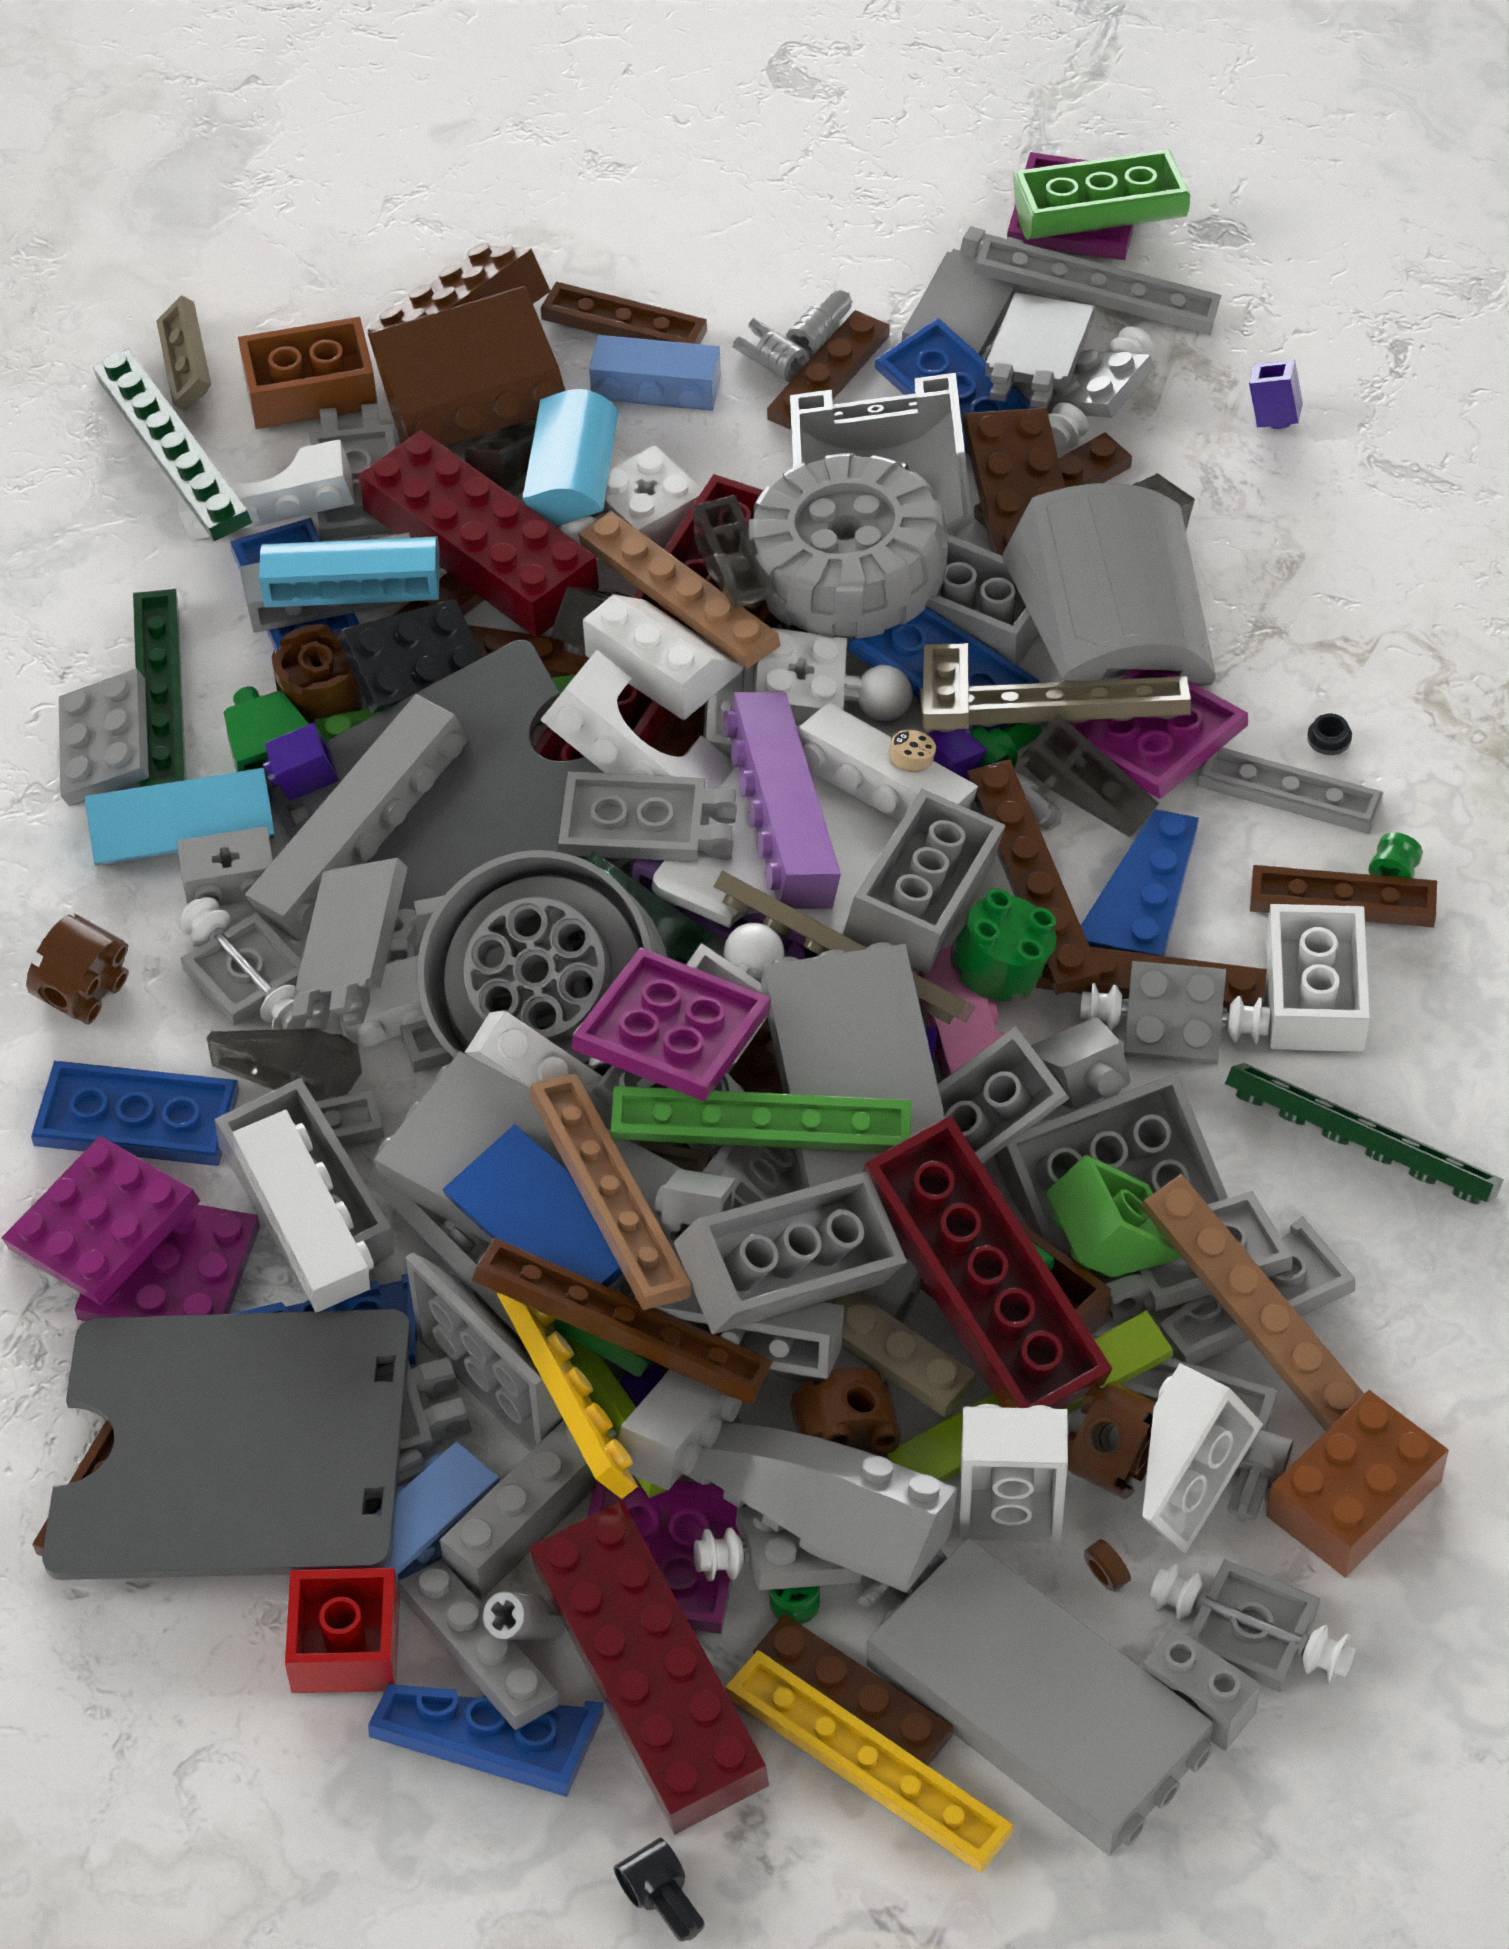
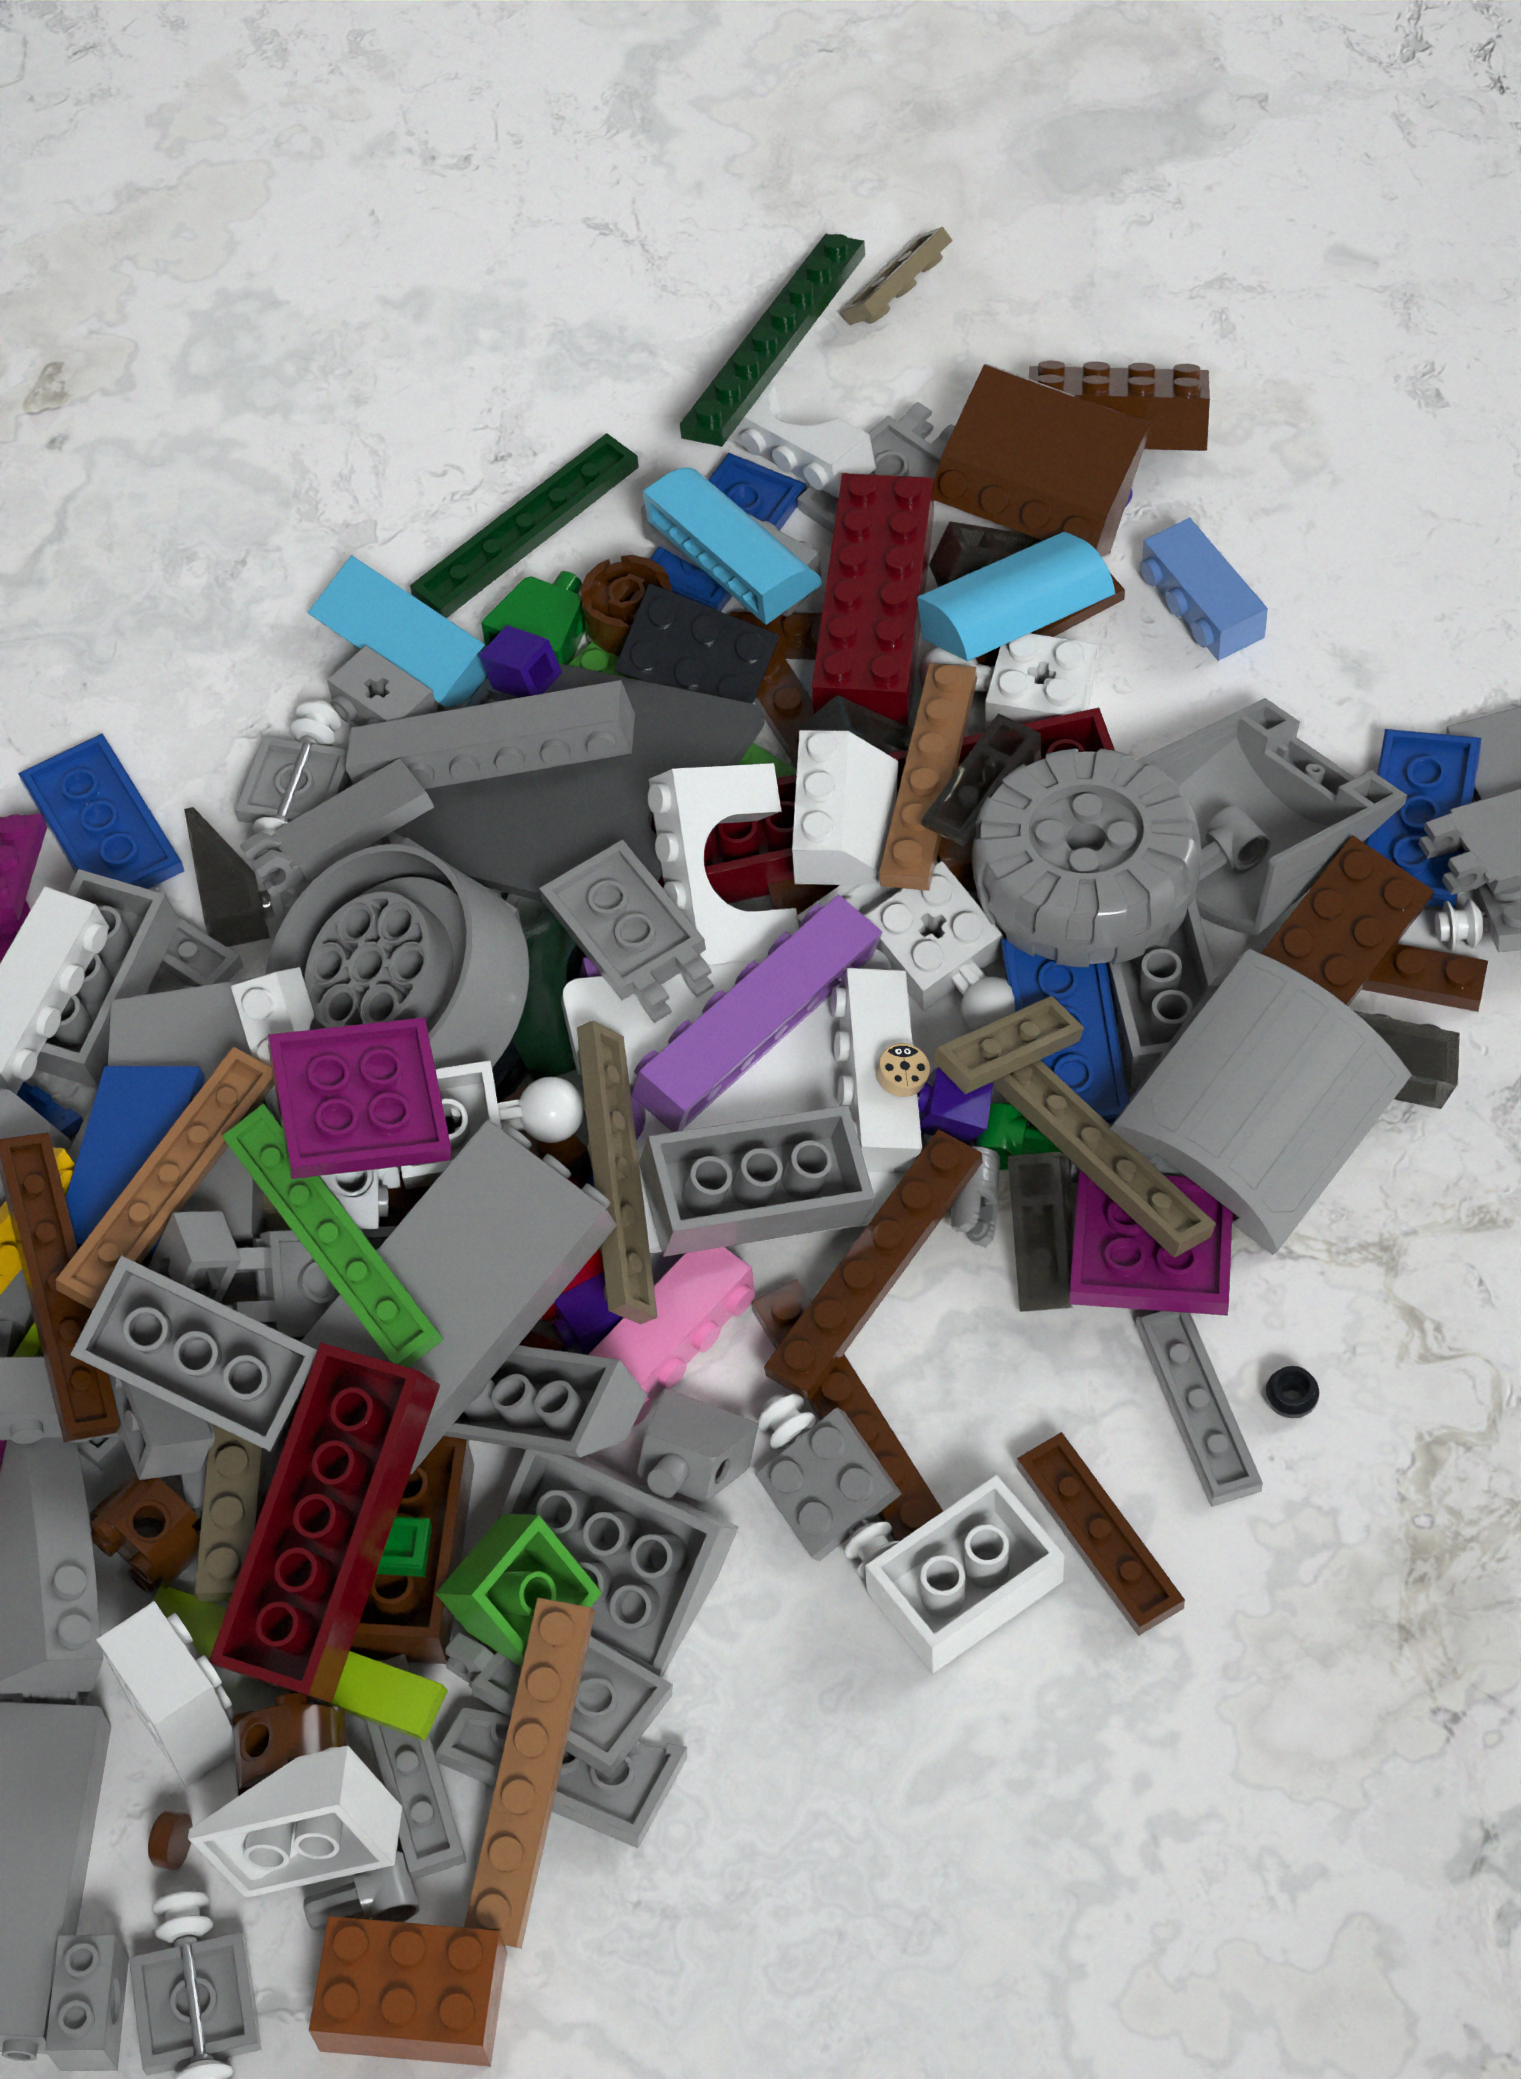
camera: 55 degrees right, 5 degrees up
(78, 968) = (187, 678): reddish brown brick -> none
(103, 737) = (443, 524): light grey plate -> none
(307, 370) = (937, 355): dark orange brick -> none
(619, 316) = (1246, 525): reddish brown plate -> none
(773, 351) = (1321, 653): light grey hinge -> none
(820, 322) = (1388, 660): light grey hinge -> none
(833, 363) = (1361, 705): reddish brown plate -> none
(1003, 946) = (751, 1293): green brick -> none
(1145, 890) = (956, 1368): blue wing -> none
(1380, 1141) = (826, 1738): dark green plate -> none
(1396, 856) = (1180, 1548): green wheel -> none

